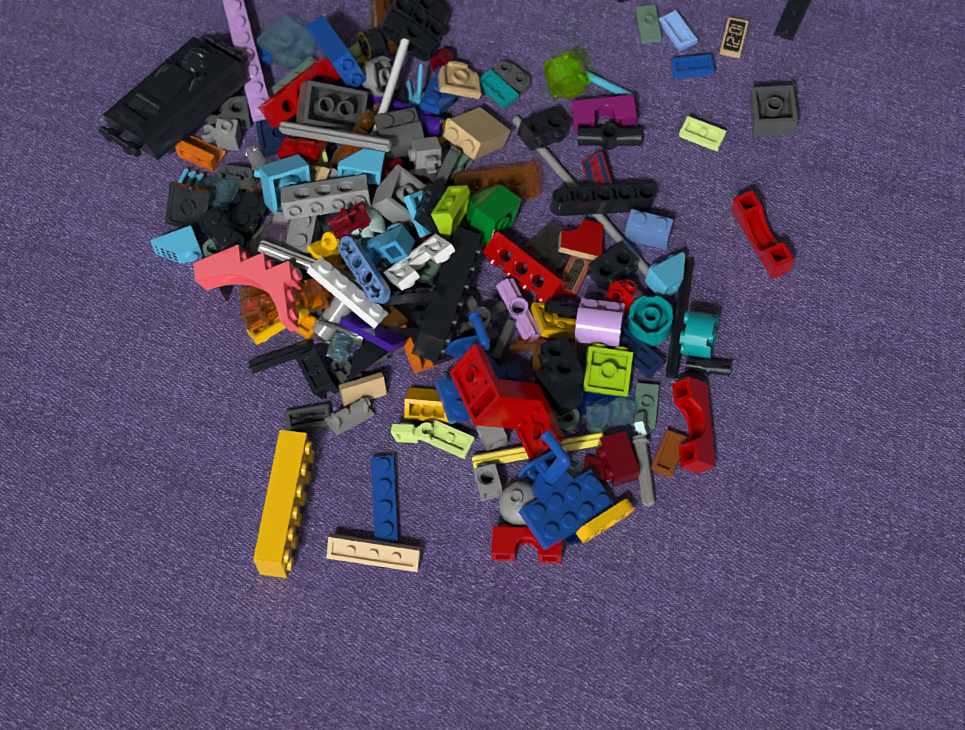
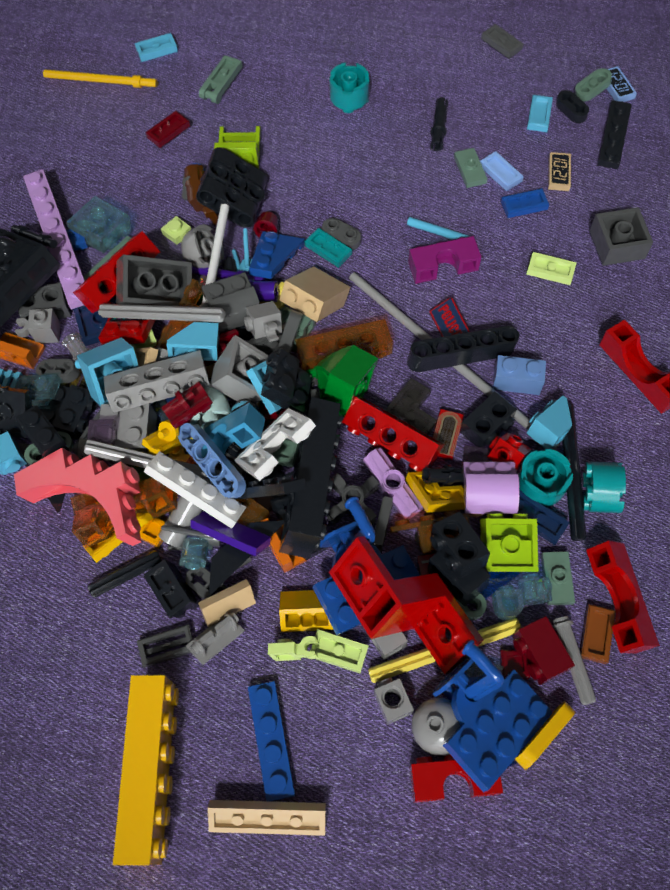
camera: 10 degrees left, 0 degrees up
(336, 52) = (153, 225): blue door -> none
(371, 43) = (189, 213): black wheel -> none
(451, 210) = (302, 379): lime tile -> none
(459, 80) = (288, 242): tan tile -> none
(543, 129) = (384, 282): black brick -> none
(566, 75) = (399, 224): clear neon green brick -> none
(583, 241) = (450, 397): red tile -> none
(597, 136) = (455, 281): black piece -> none
(640, 424) = (560, 603): light aqua tile -> none
(708, 367) = (618, 522): black pin -> none

